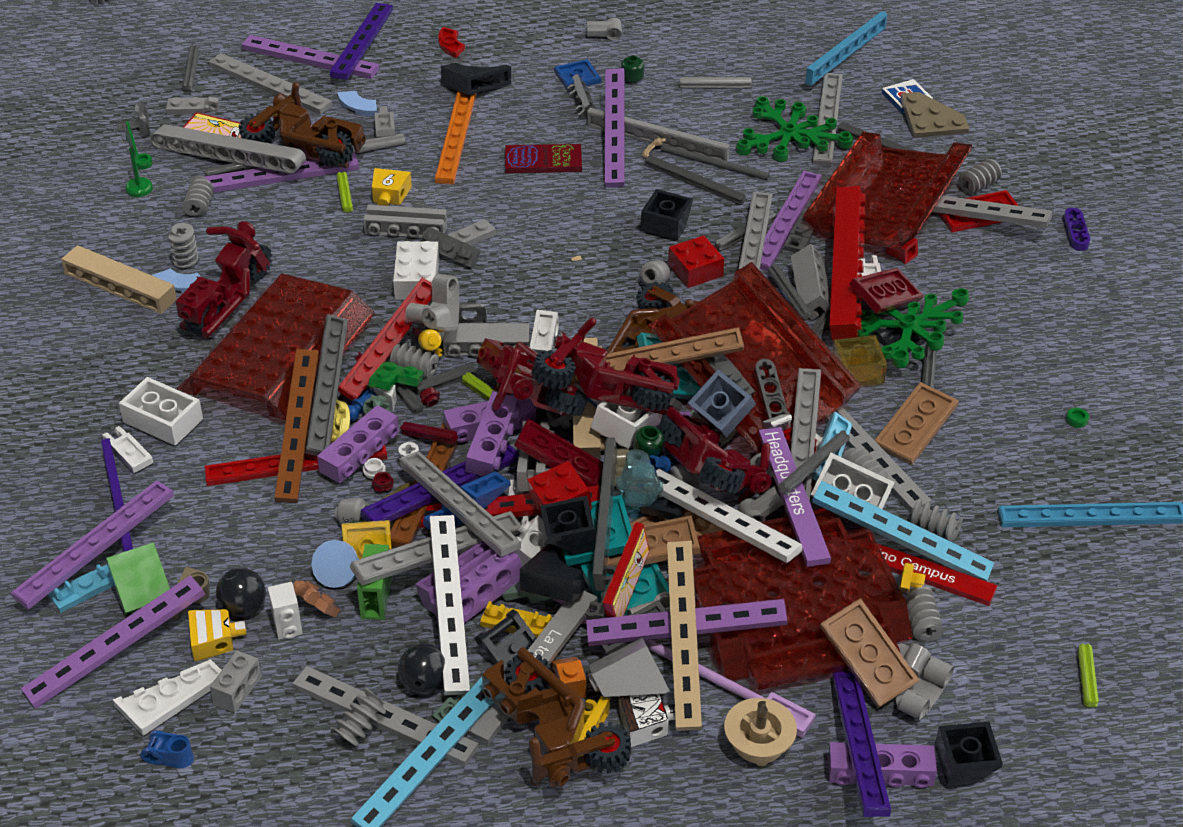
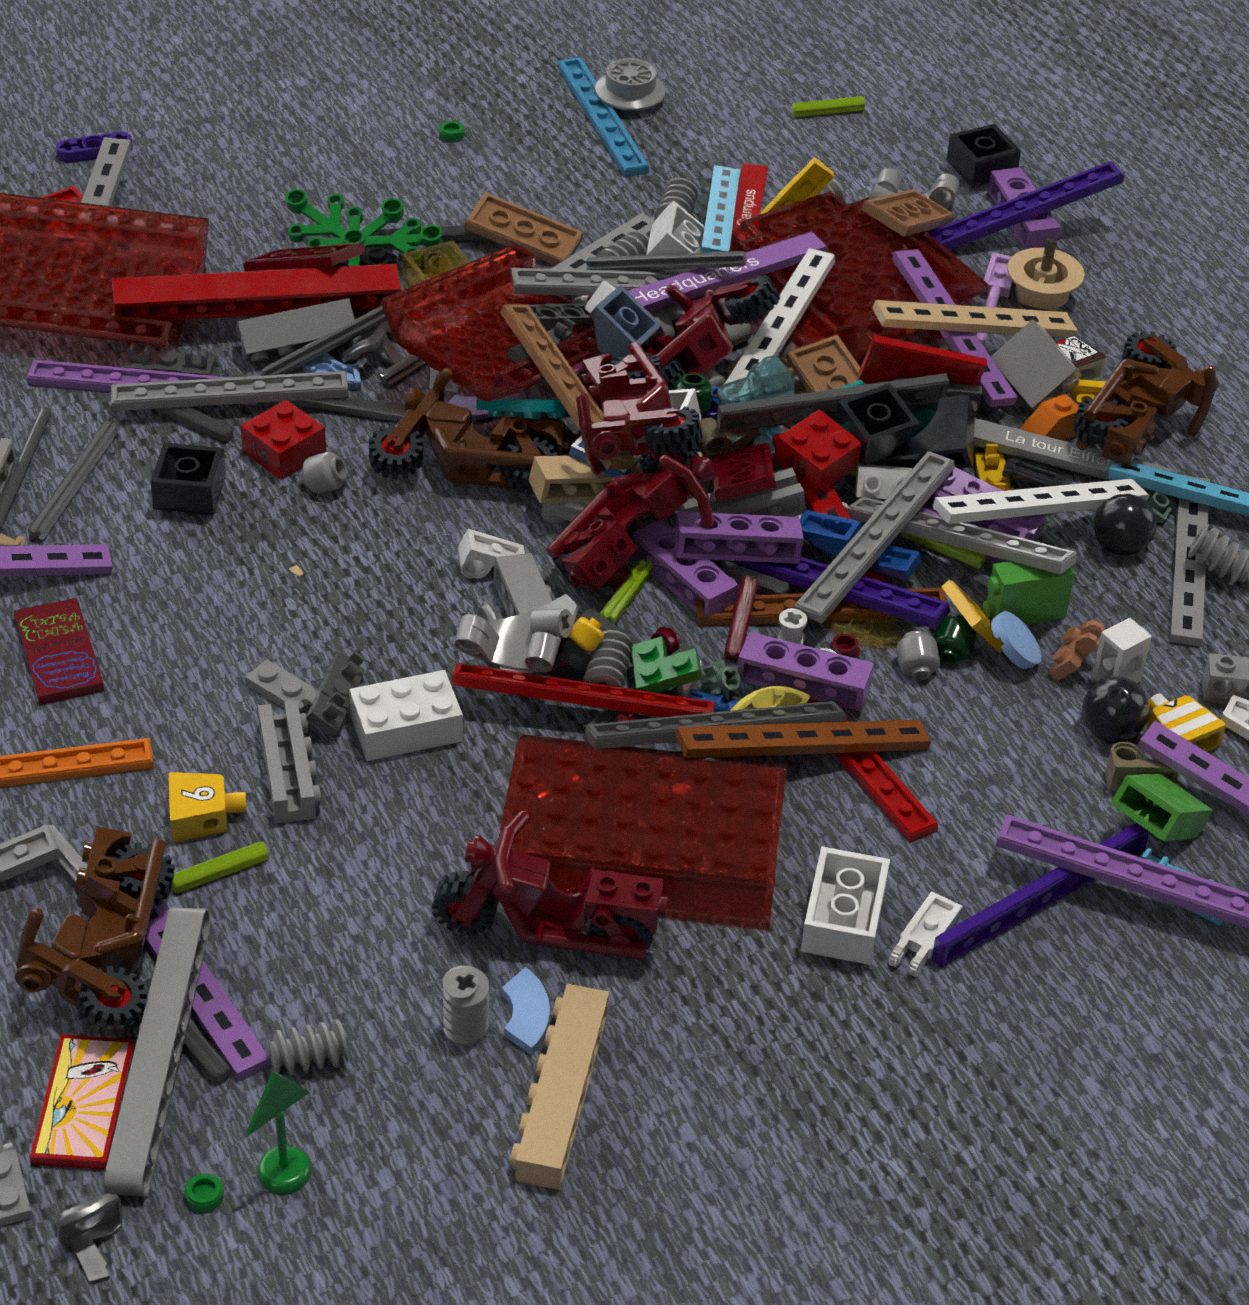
camera: 110 degrees left, 0 degrees up
(1125, 534) = (630, 85): none -> light grey wheel

